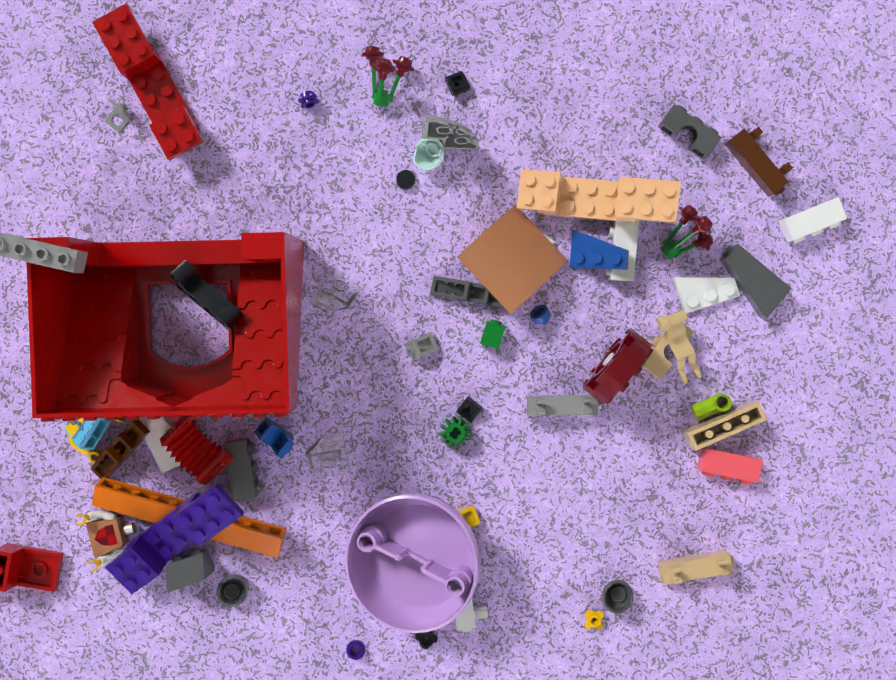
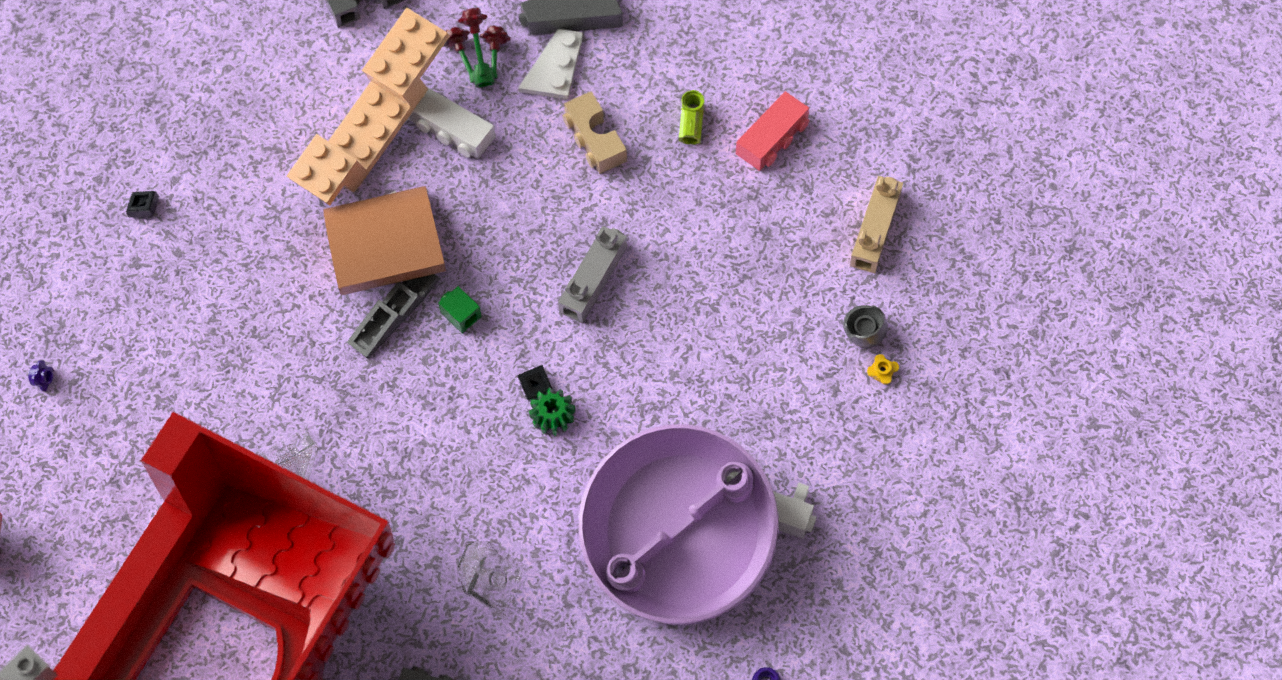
camera: 60 degrees left, 25 degrees down
(205, 296) = (189, 604): black beam -> none
(275, 436) = (424, 632): blue brick -> none
(383, 67) = (66, 258): dark red plant -> none
(405, 179) = (212, 316): black tile -> none
(421, 346) = (422, 399): light grey bracket -> none
(426, 643) = (802, 575): black plate -> none
(428, 154) = (199, 268): light aqua hair -> none
(449, 133) = (188, 234): light grey brick -> none
(540, 314) = (470, 246): blue tile -> none
(596, 254) = (436, 150): blue wing -> none
(618, 367) = (579, 179): dark red piece -> none
(678, 341) = (592, 111): tan flag -> none
(724, 425) = (720, 113): tan brick -> none

